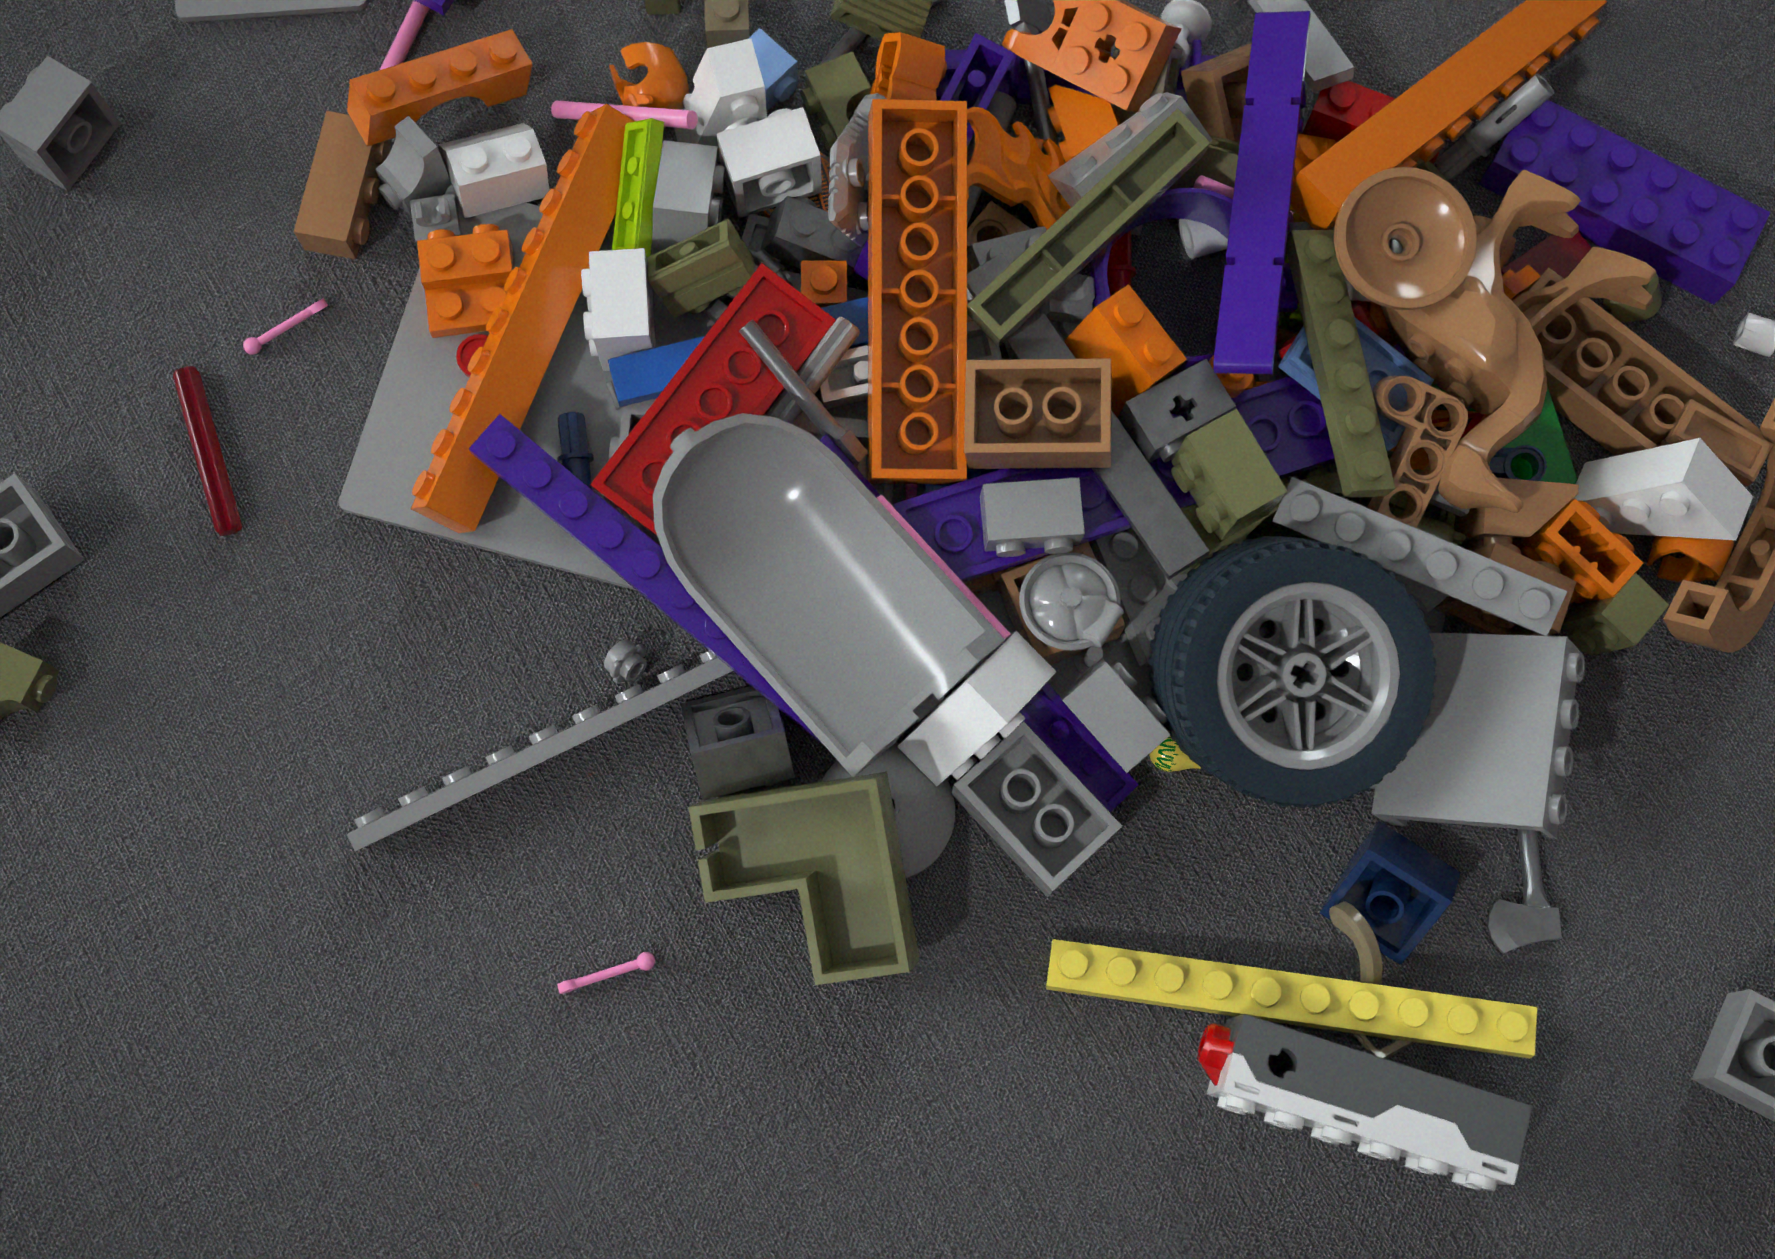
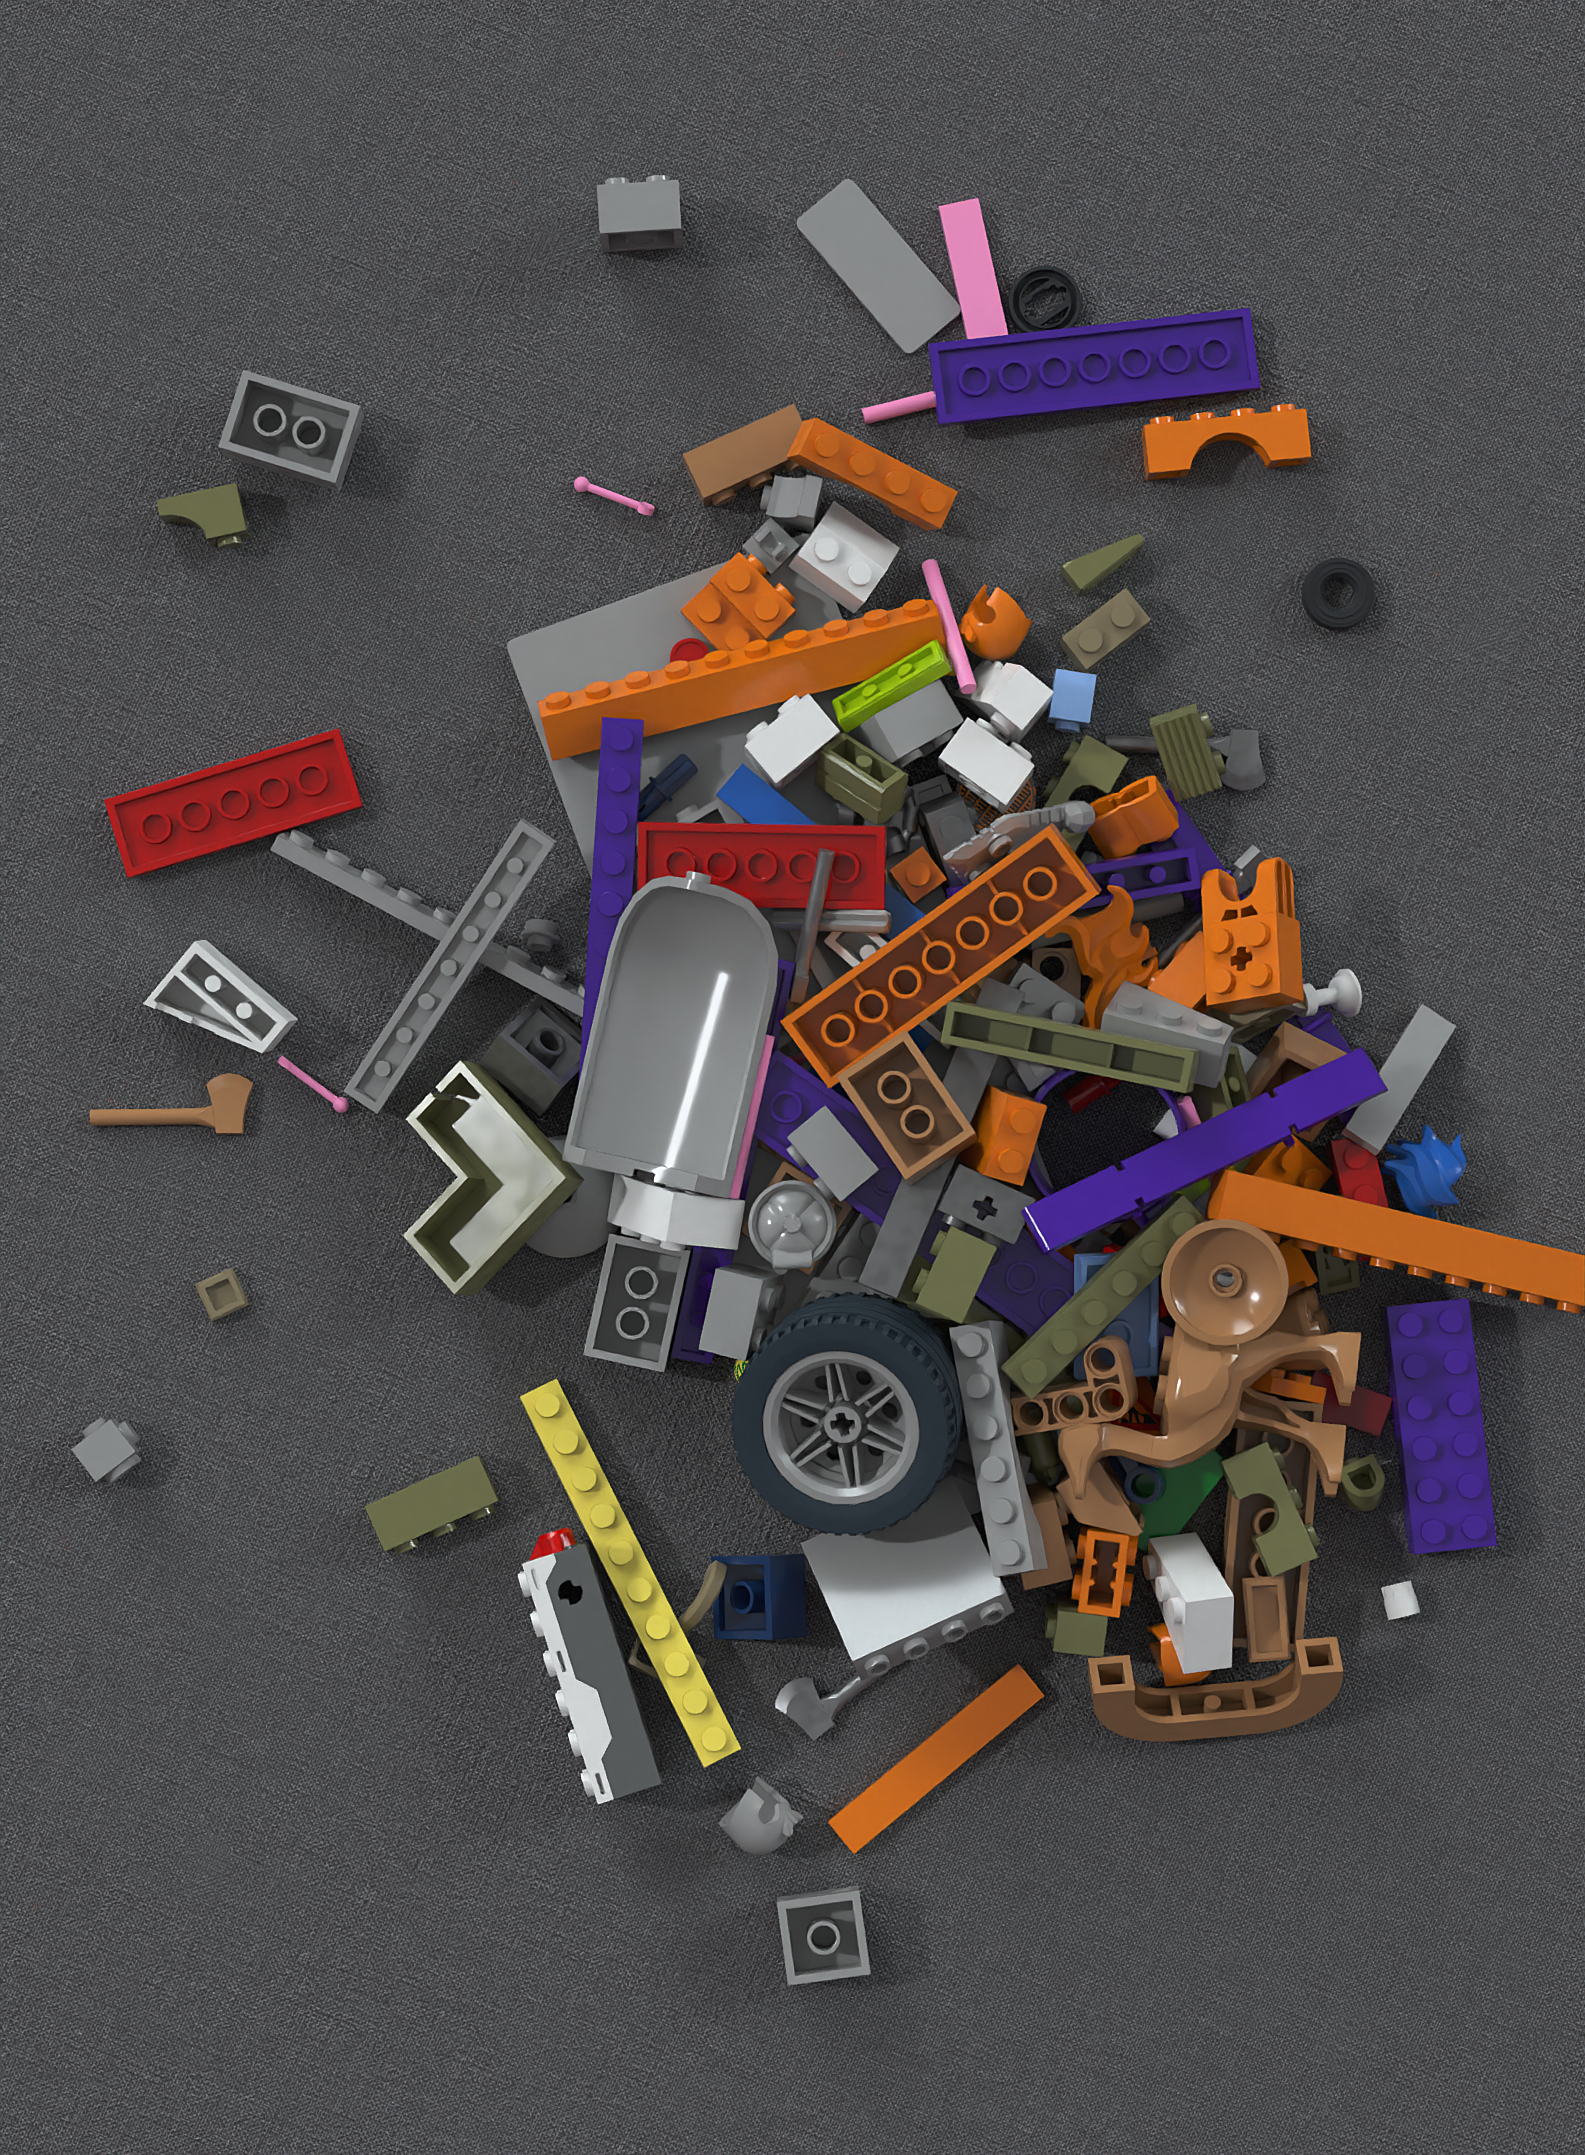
camera: 55 degrees right, 10 degrees up
(207, 451) = (480, 515): dark red axle -> none
(286, 861) = (233, 803): none -> red plate
(458, 1001) = (221, 998): none -> white wedge
(573, 1080) = (226, 1114): none -> medium nougat piece
(592, 758) = (450, 965): none -> light grey plate
(743, 1209) = (222, 1294): none -> dark tan tile
(1095, 1144) = (433, 1505): none -> olive brick
(1392, 53) = (1426, 1171): none -> blue hair
(1493, 127) = (1416, 1289): light grey axle -> none
(1611, 1040) = (760, 1820): none -> light grey helmet
(1648, 839) = (935, 1758): none -> orange tile
(1660, 371) = (1287, 1540): none -> olive arch

